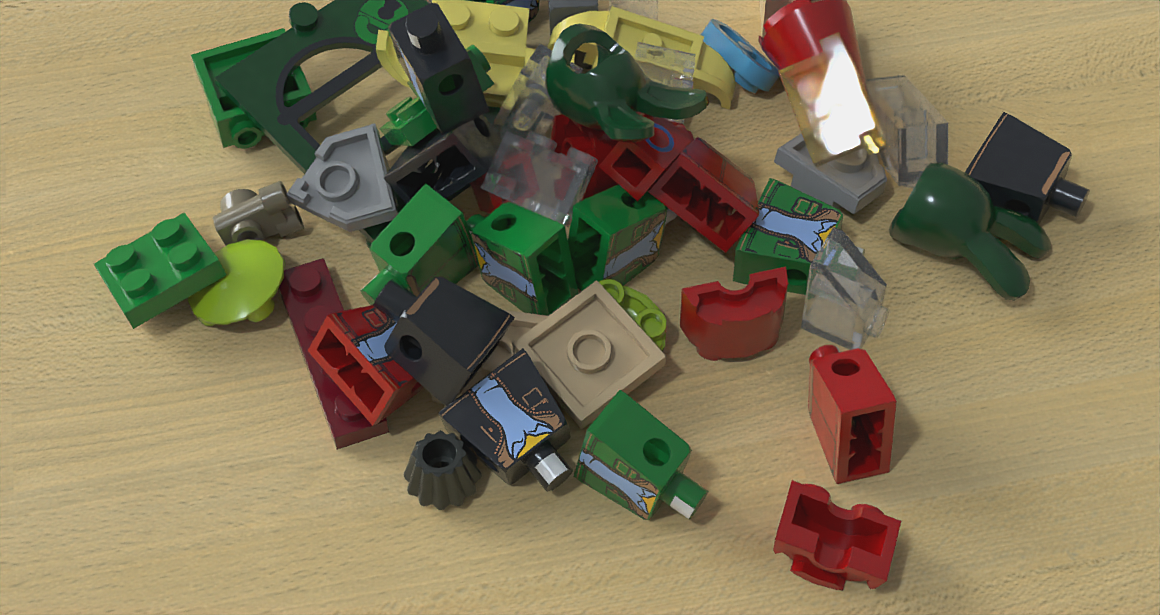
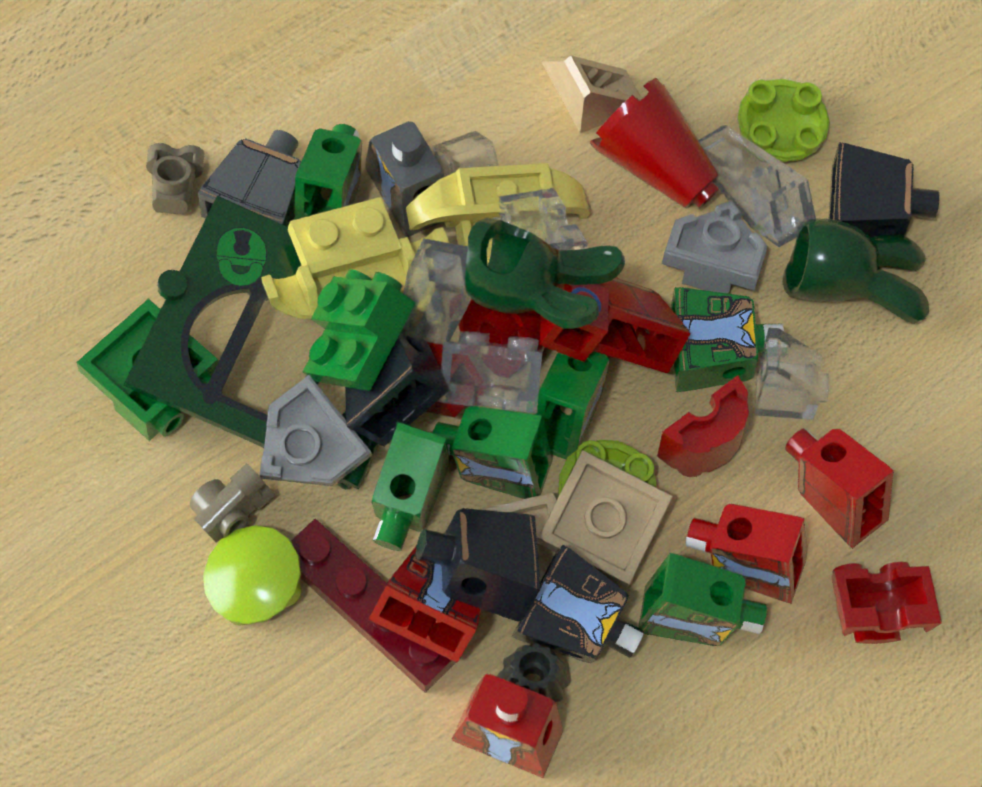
camera: 30 degrees left, 10 degrees up
(159, 269) = (177, 592): green plate -> none
(376, 489) = (510, 725): none -> red torso
(430, 53) = (381, 318): black torso -> none
(729, 436) = (757, 544): none -> red torso
(750, 66) = (590, 169): dark azure plate -> none
(832, 104) = (703, 200): clear yellow bracket -> none
(965, 84) = (784, 118): none -> lime dish

